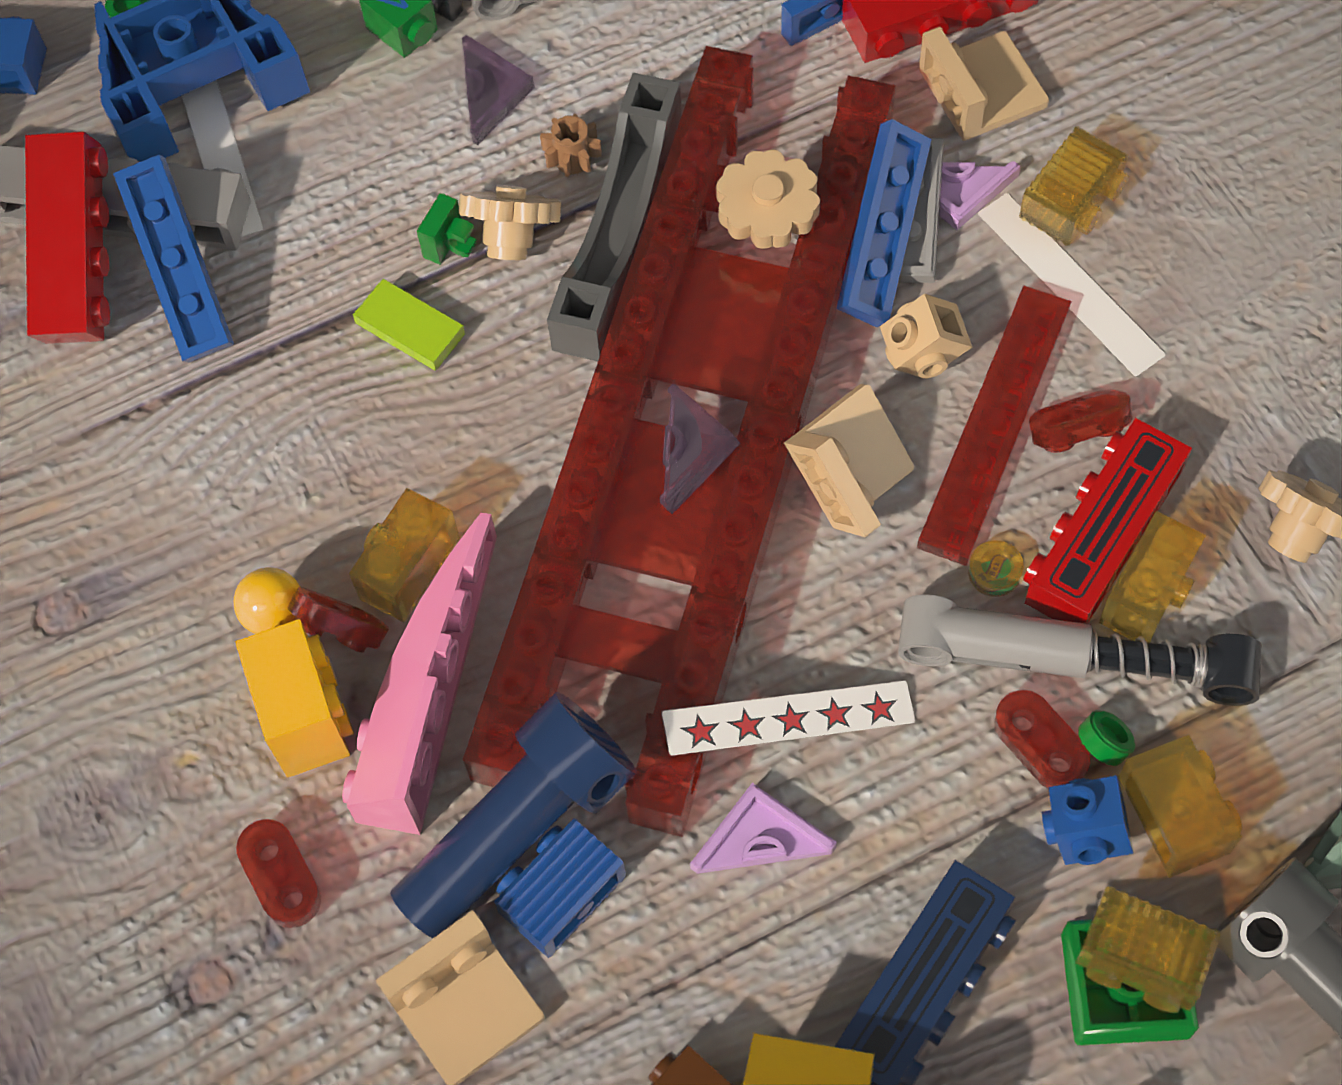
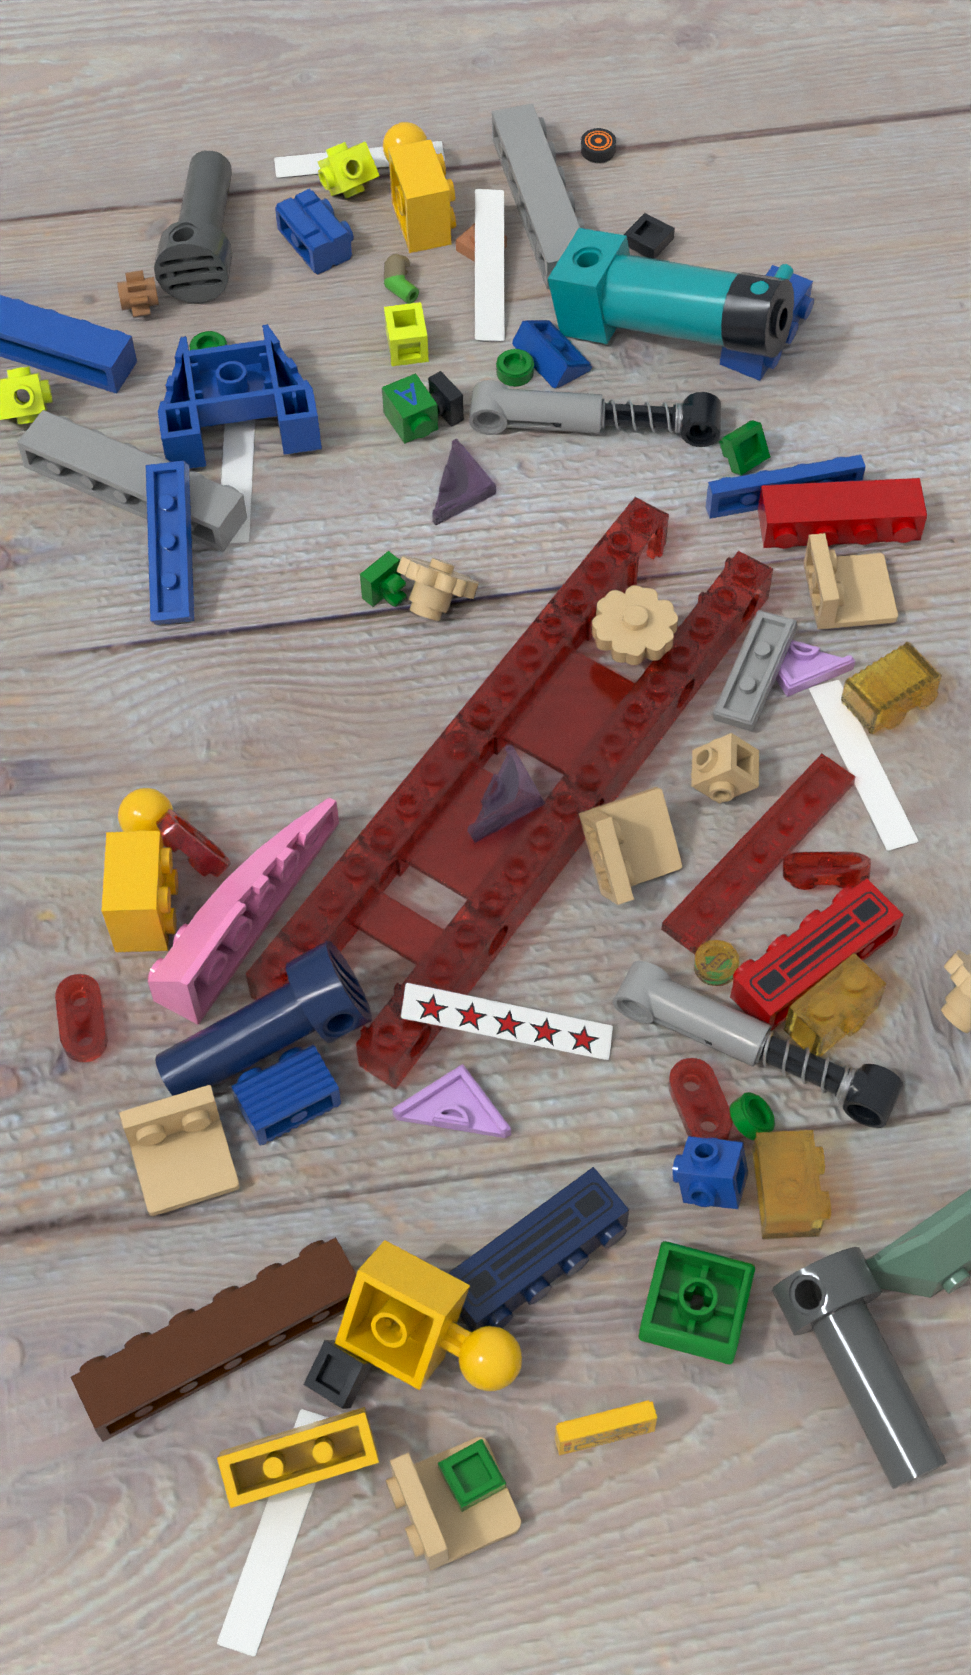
camera: 15 degrees right, 5 degrees down
(66, 238) = (95, 504): red brick -> none
(404, 554) = (260, 811): clear yellow brick -> none
(409, 324) = (331, 644): lime tile -> none
(571, 145) = (505, 544): medium nougat gear -> none
(599, 271) = (477, 654): dark grey arch -> none
(884, 223) = (724, 672): blue plate -> none
(1147, 950) = (713, 1278): clear yellow brick -> none

